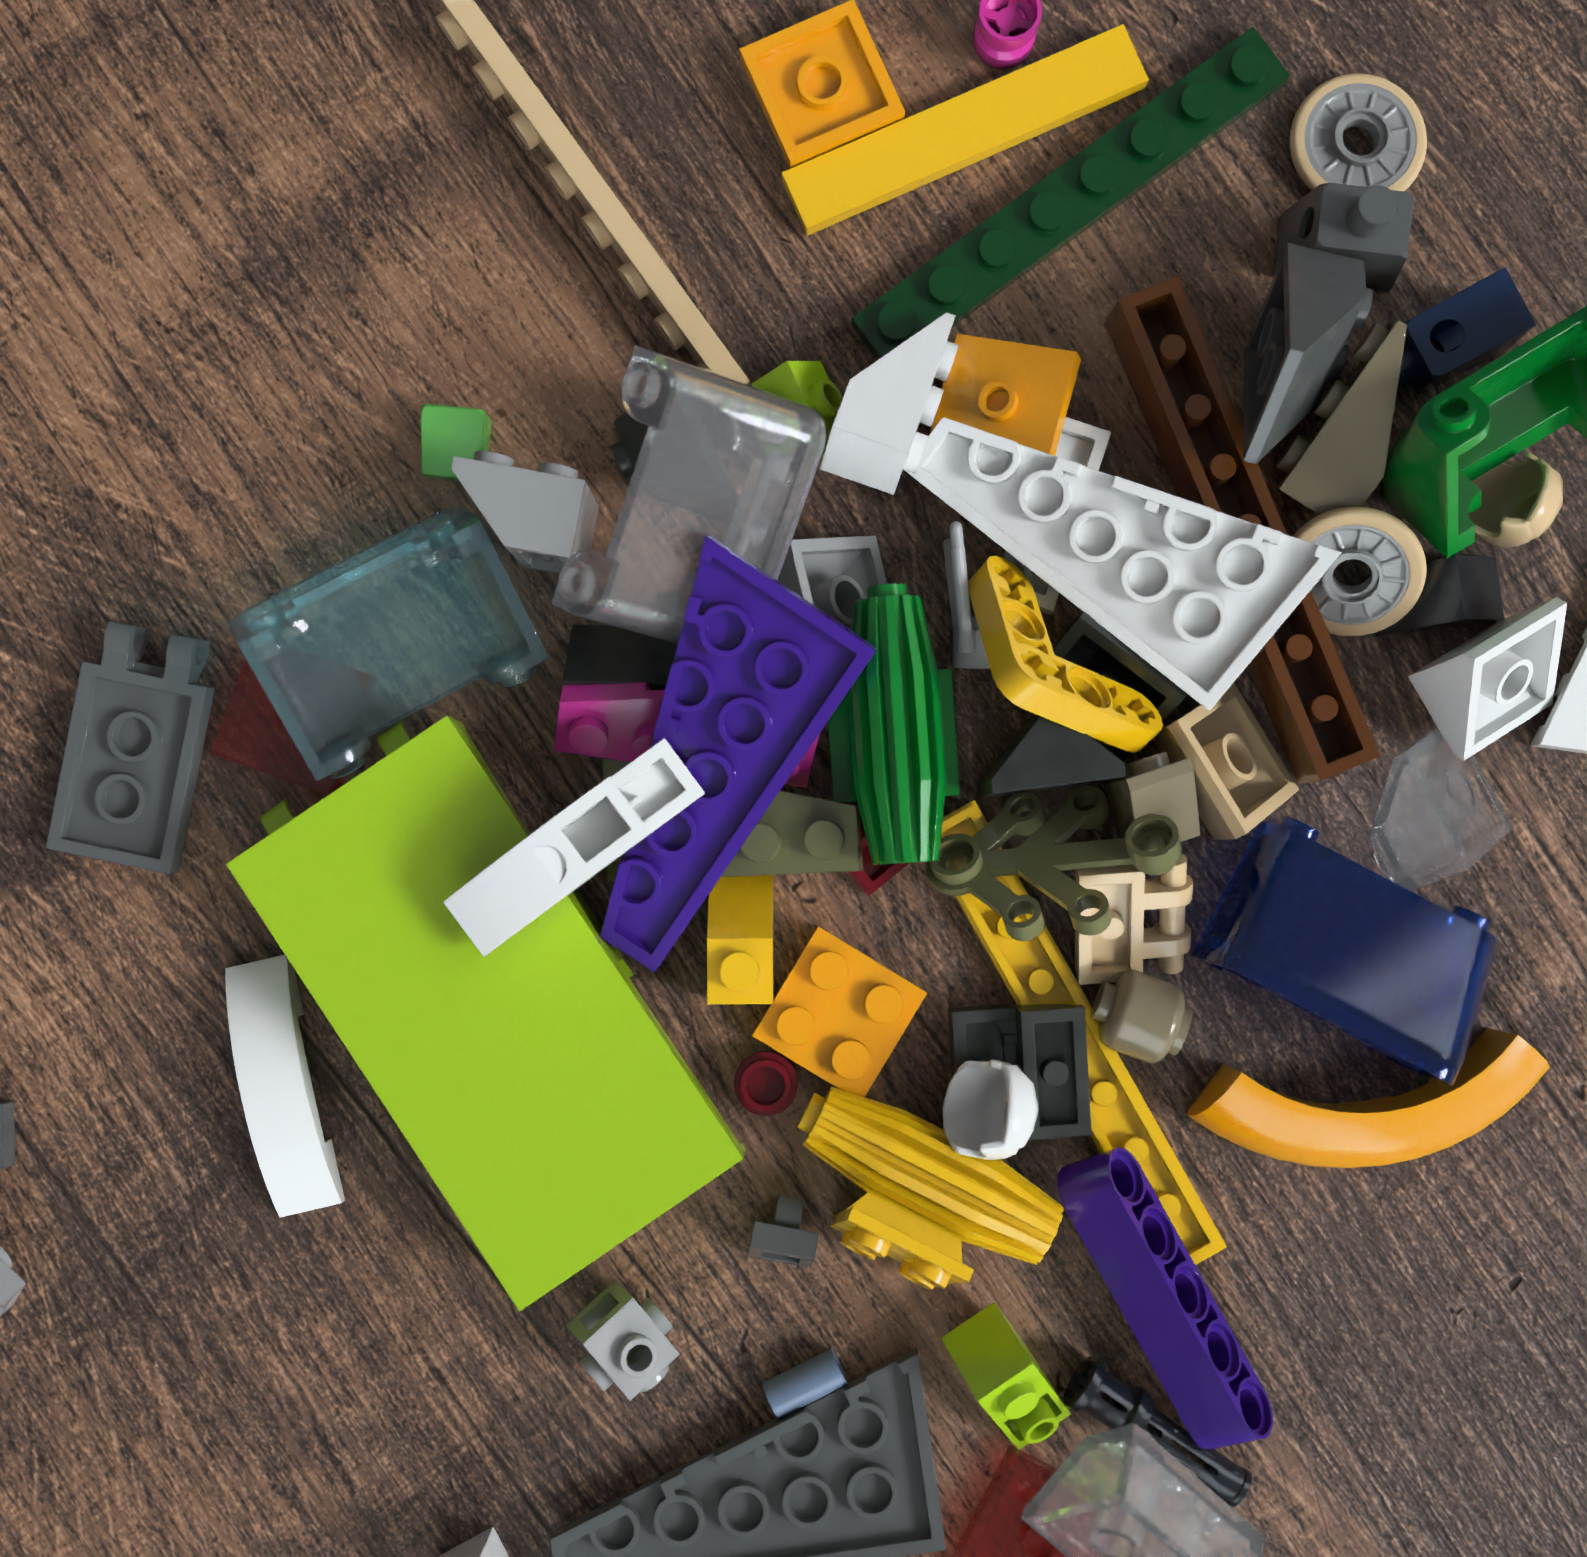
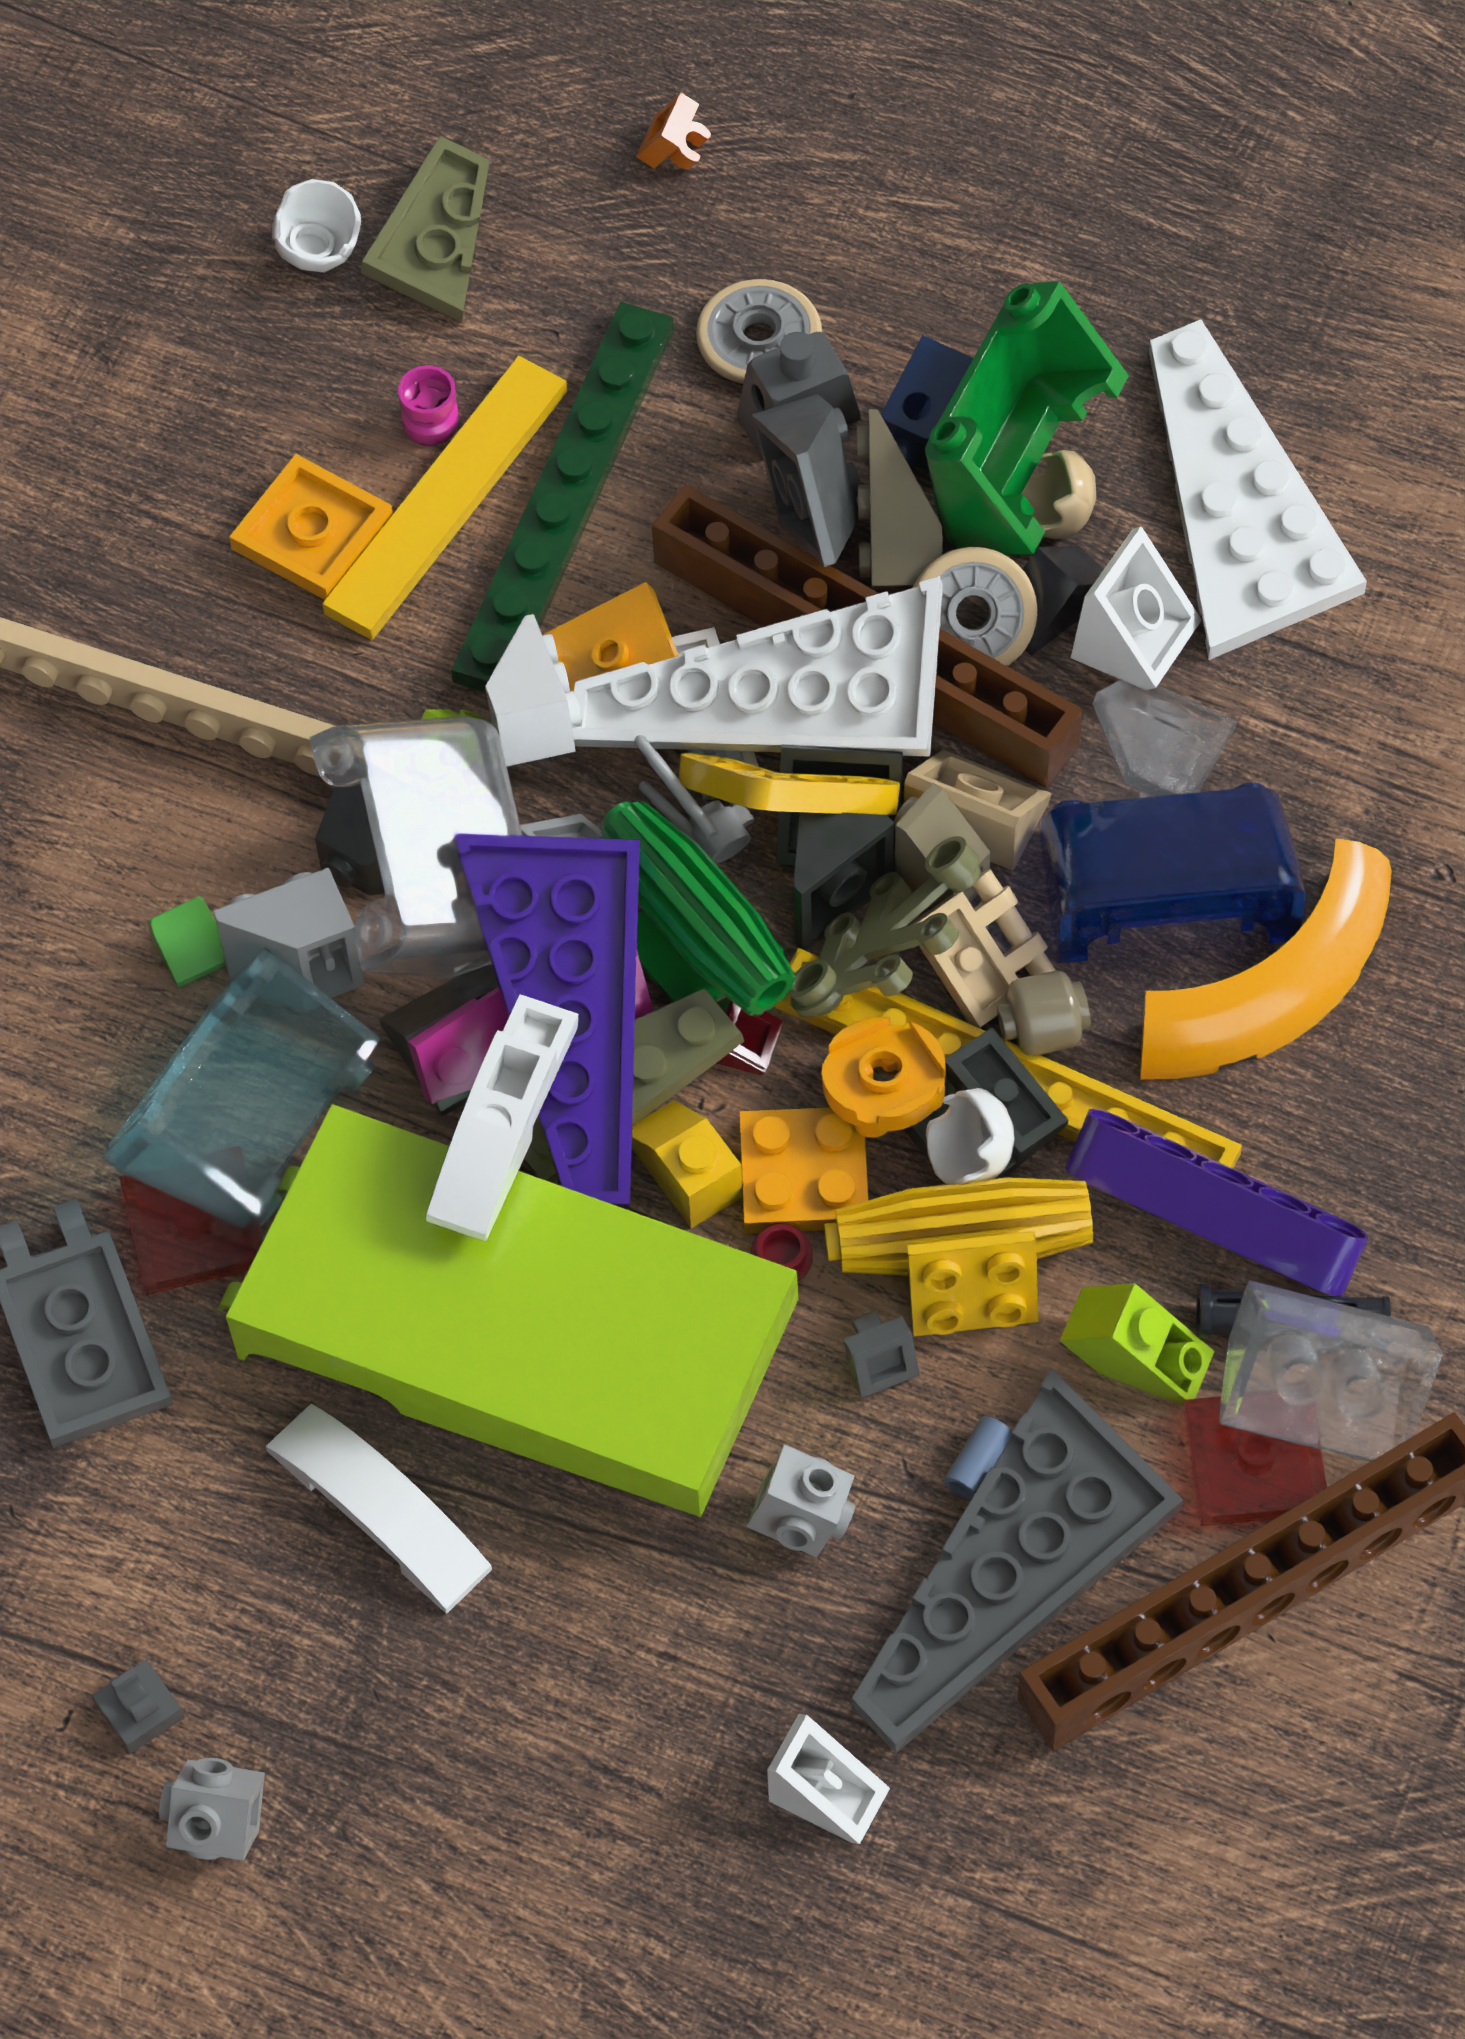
camera: 30 degrees left, 25 degrees down
(986, 964) = (888, 1105): none -> light orange plate

